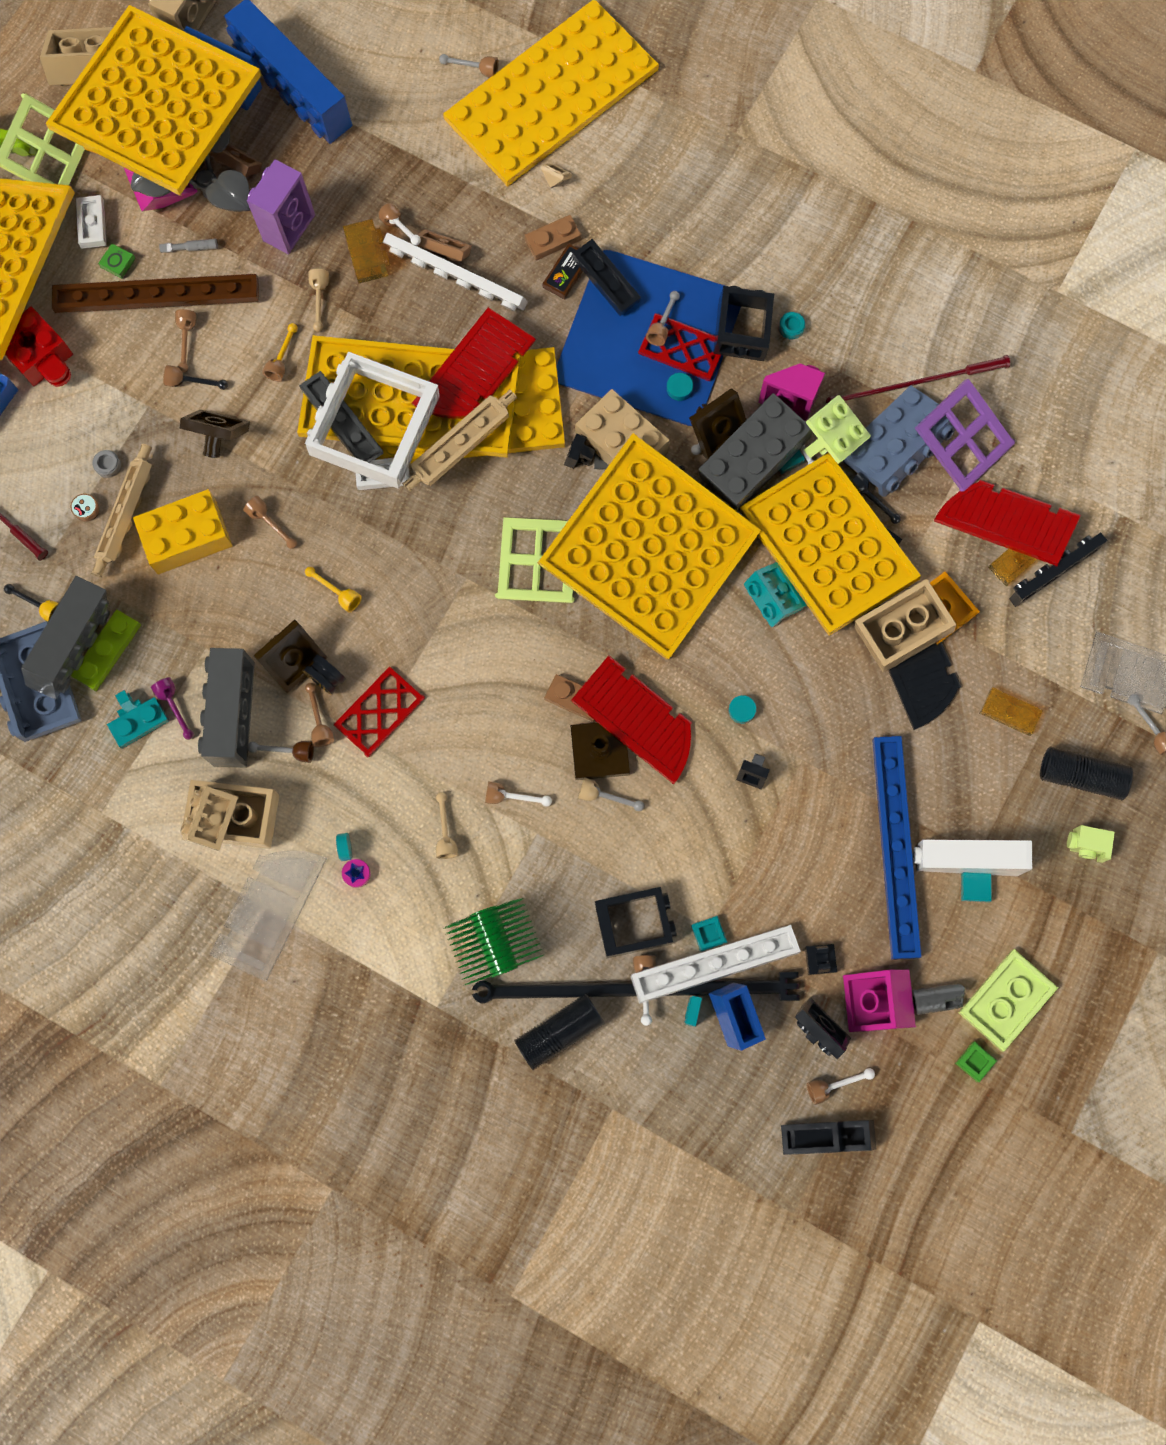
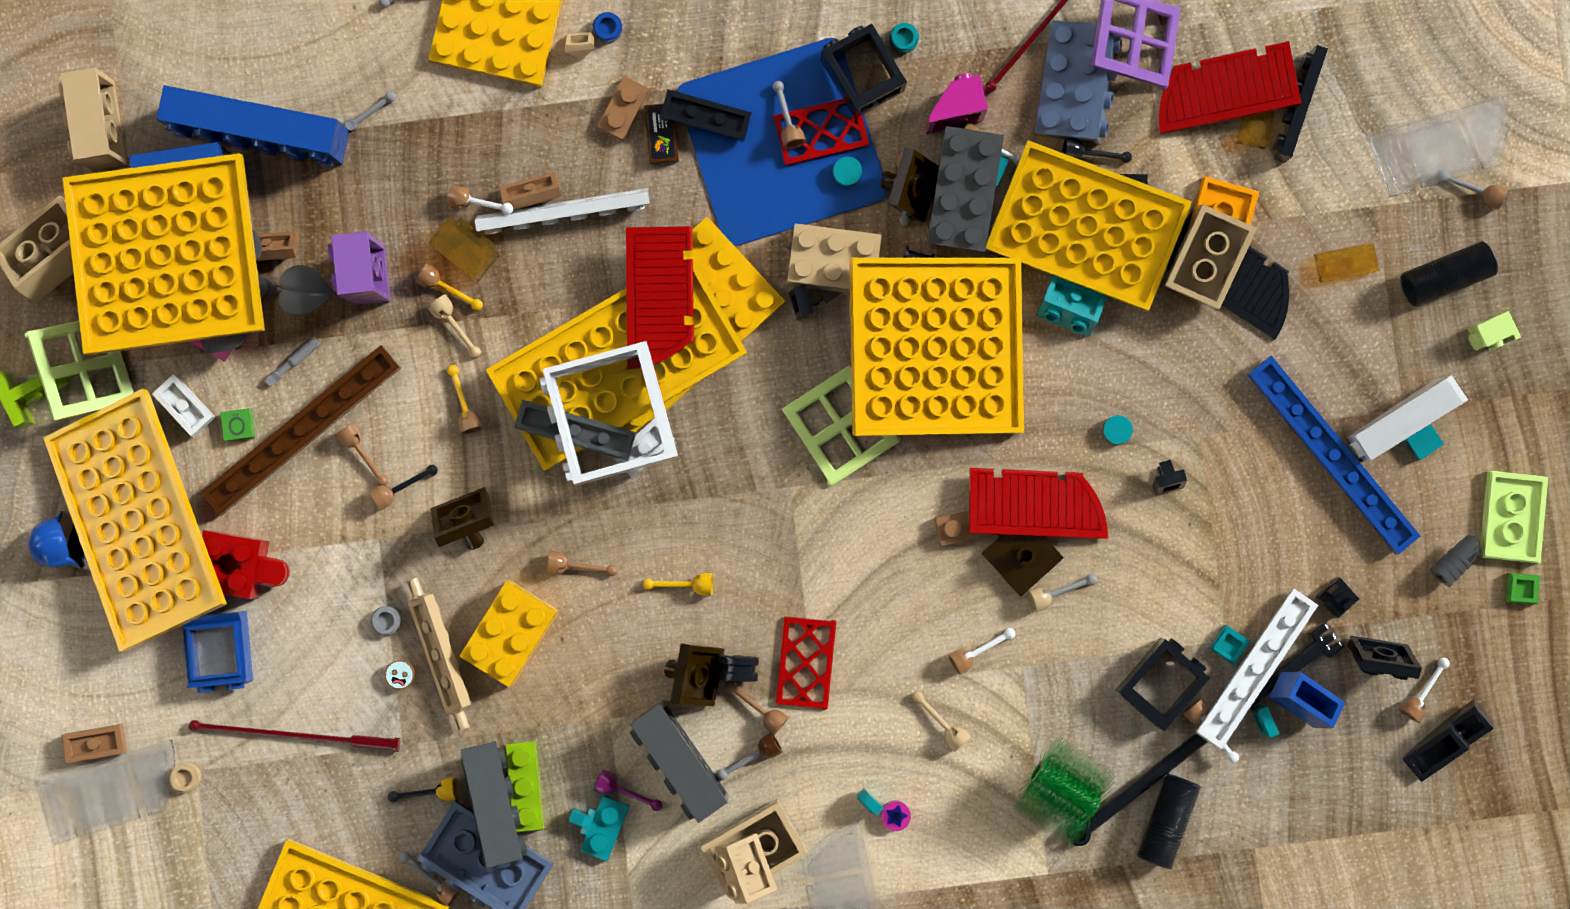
camera: 40 degrees left, 10 degrees up
(327, 254) = (430, 277): none -> hinge
(357, 122) = (351, 124): none -> light grey hinge
(460, 440) = (699, 373): tan plate -> none
(584, 177) = (607, 27): none -> blue tile
(836, 431) = (1024, 119): yellowish green bracket -> none
(879, 1000) = (1411, 598): dark pink slope -> none

